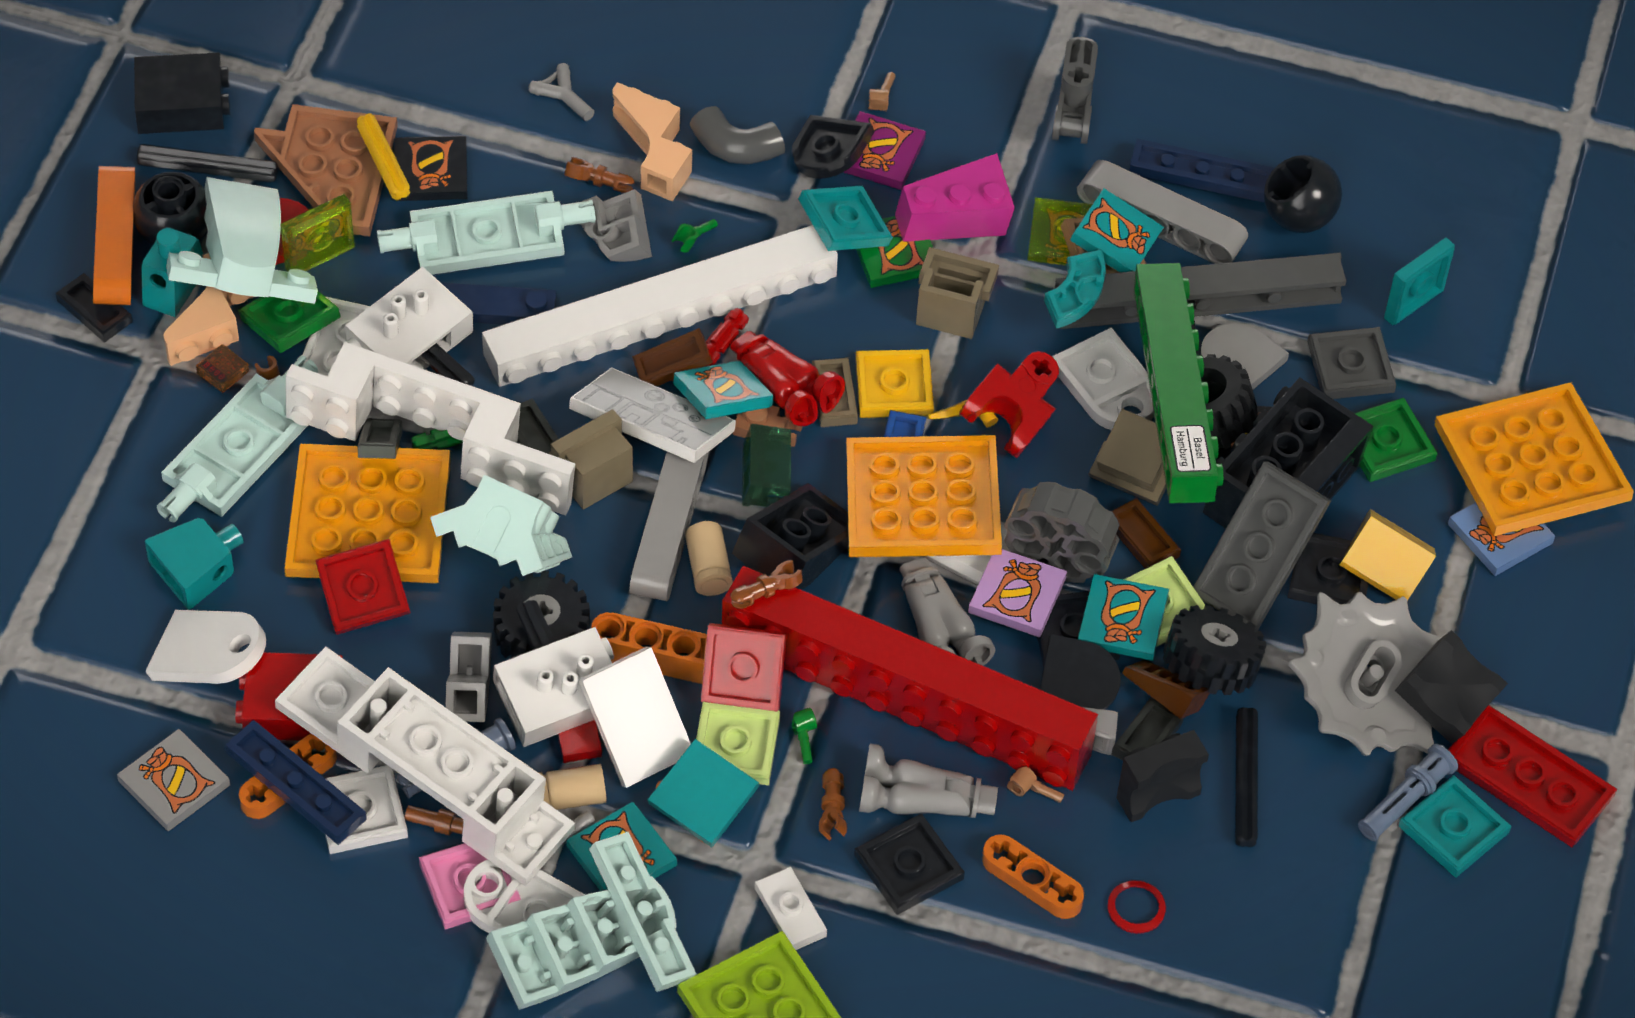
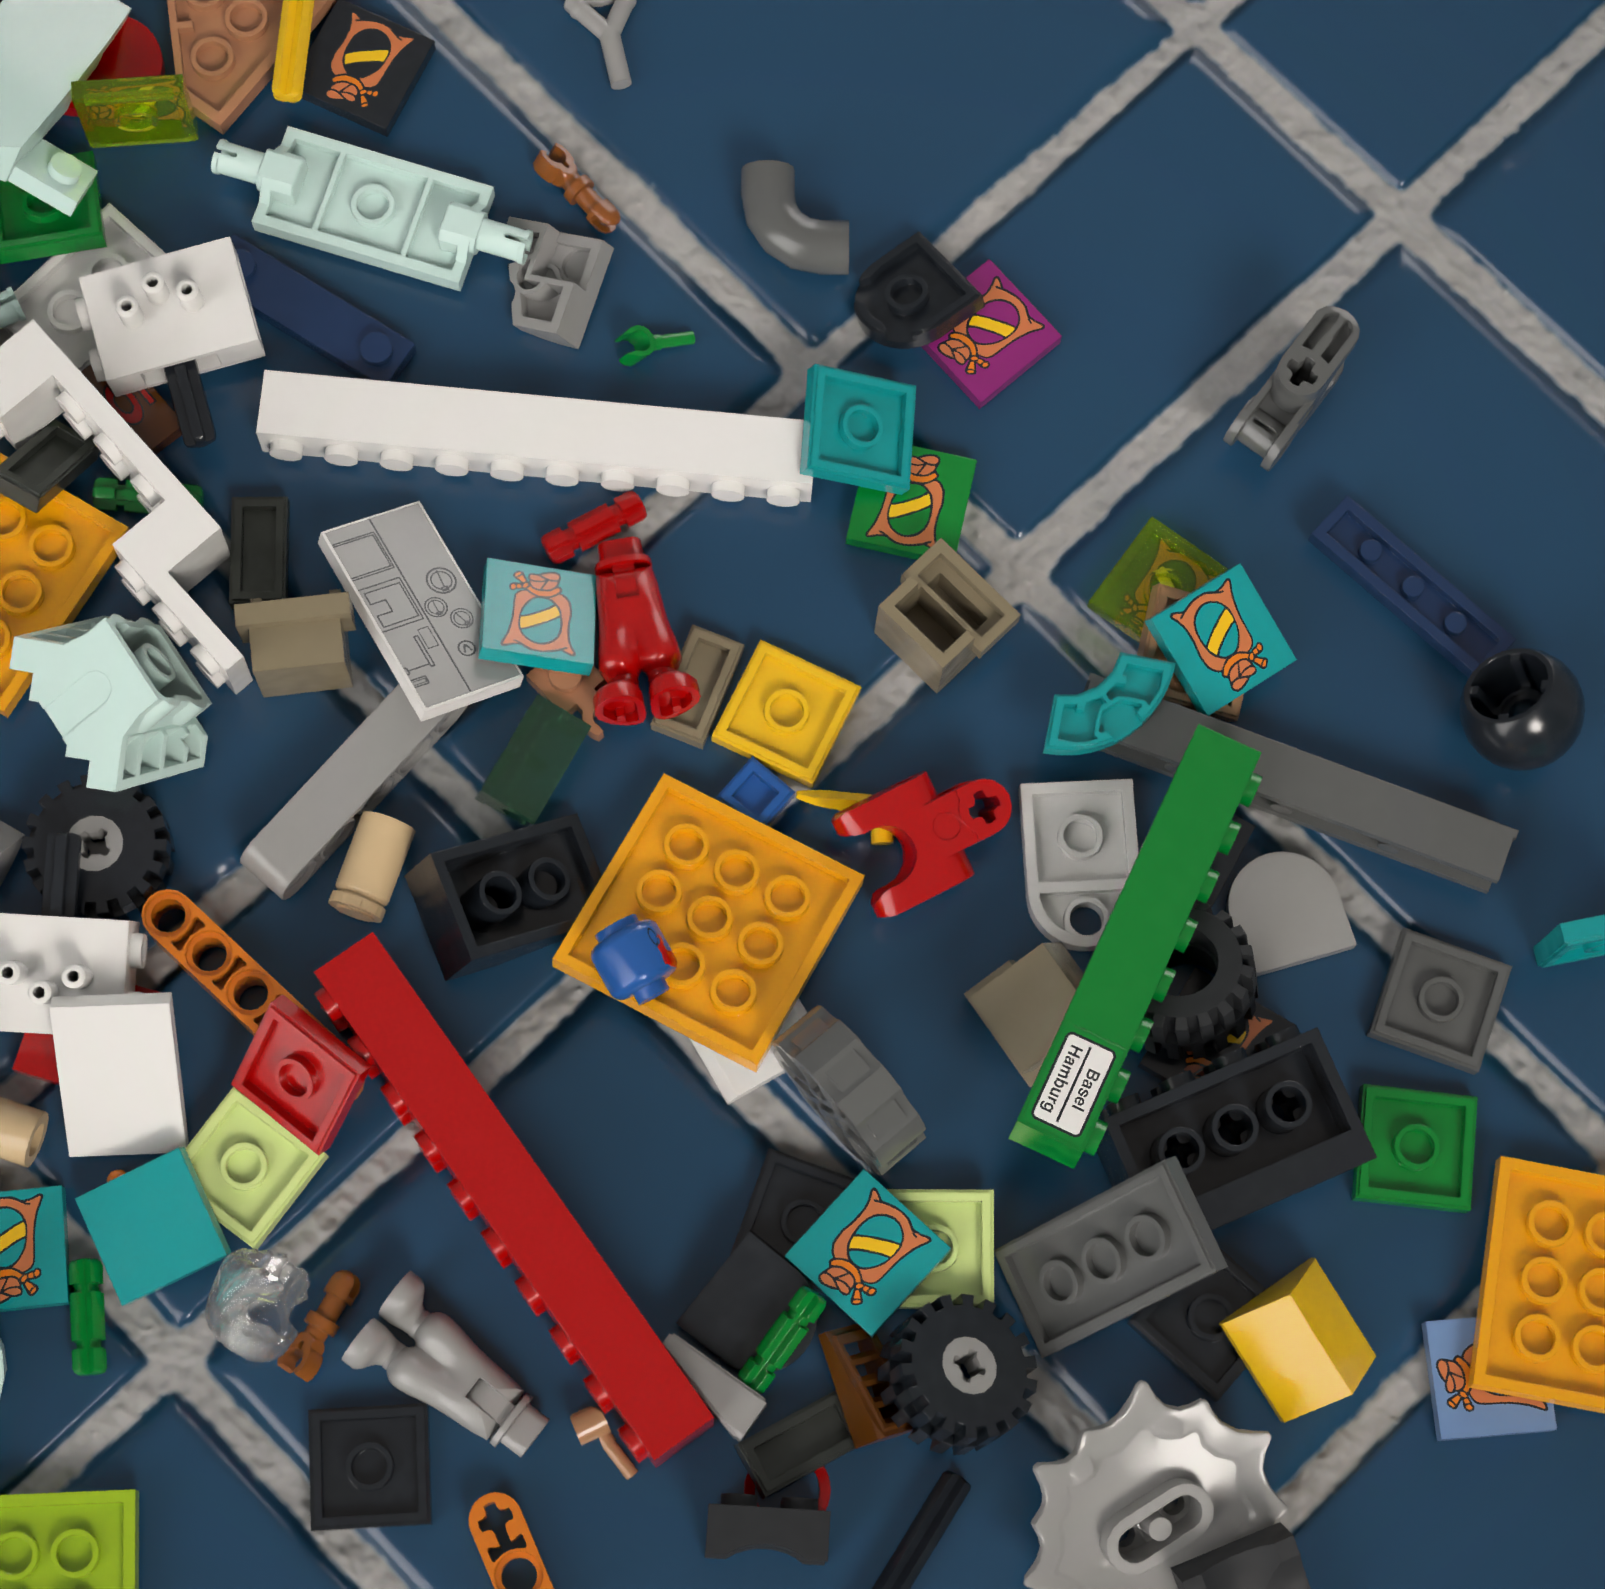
camera: 25 degrees right, 20 degrees up
(653, 127) = (695, 149): light nougat arch -> none
(676, 355) = (504, 531): reddish brown tile -> none
(693, 863) = (87, 1317): none -> green axle
(766, 585) = (339, 987): dark orange piece -> none
(788, 803) = (254, 1303): none -> clear hair
(790, 908) = (174, 1453): white plate -> none
(803, 722) = (351, 1180): green hand -> none
(879, 97) = (1031, 251): medium nougat hand -> none
(899, 518) = (634, 959): none -> blue head
(939, 615) = (623, 1123): light grey piece -> none
(957, 203) = (1029, 479): dark pink wedge -> none
(1017, 592) = (750, 1136): lavender tile -> none
(1105, 676) = (782, 1339): none -> green axle
(1144, 534) = (983, 1126): reddish brown tile -> none
(1184, 220) = (1317, 632): light grey beam -> none

